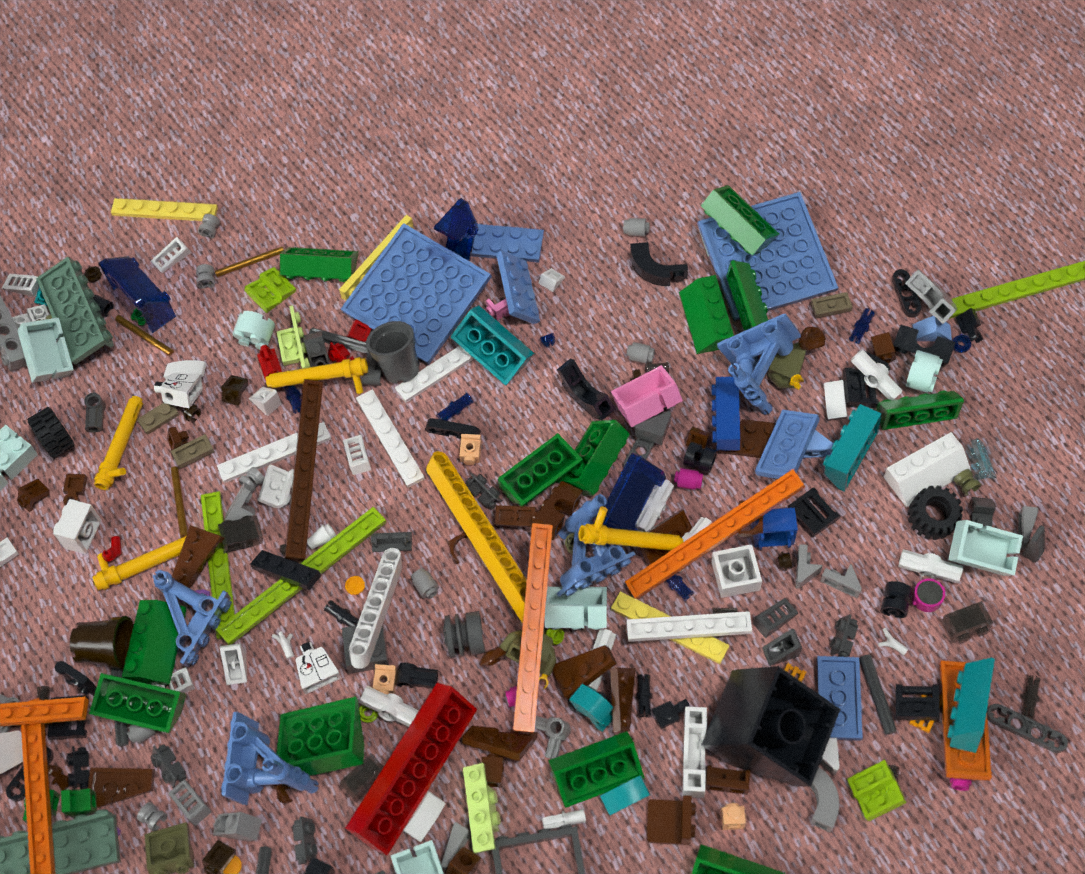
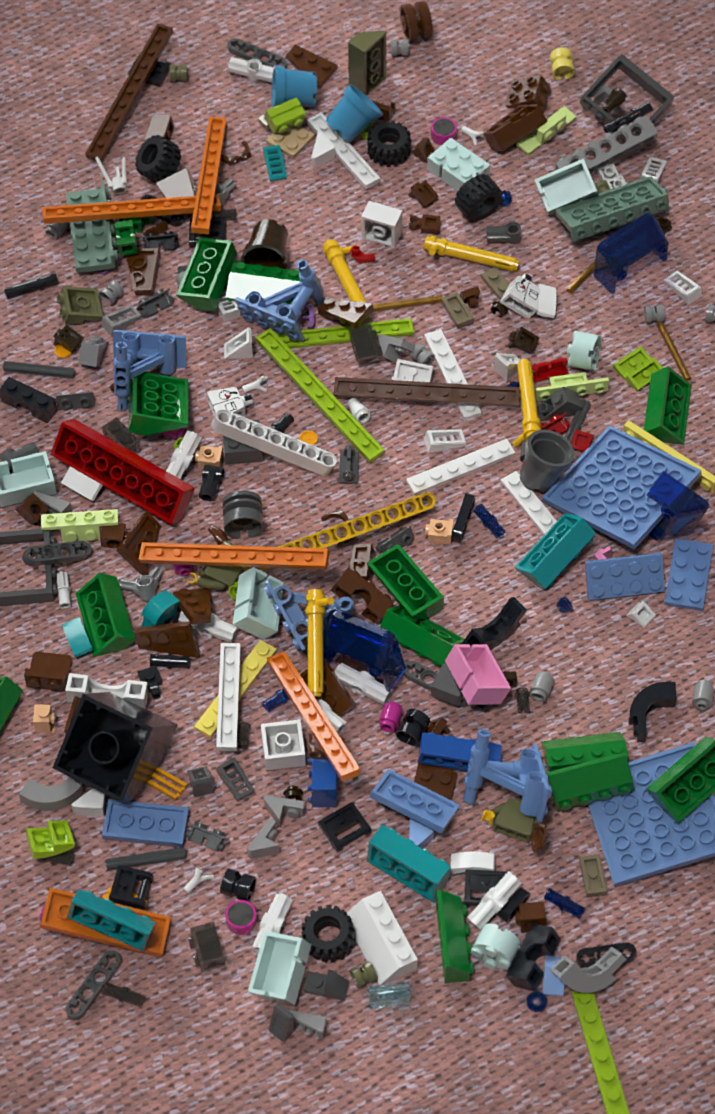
camera: 90 degrees right, 5 degrees down
(75, 678) = (236, 230): black plate -> none
(285, 569) = (322, 378): black plate -> none
(424, 583) = (301, 490): light grey brick -> none
(525, 827) = (55, 550): none -> dark grey beam
(968, 323) = (560, 1011): black plate -> none

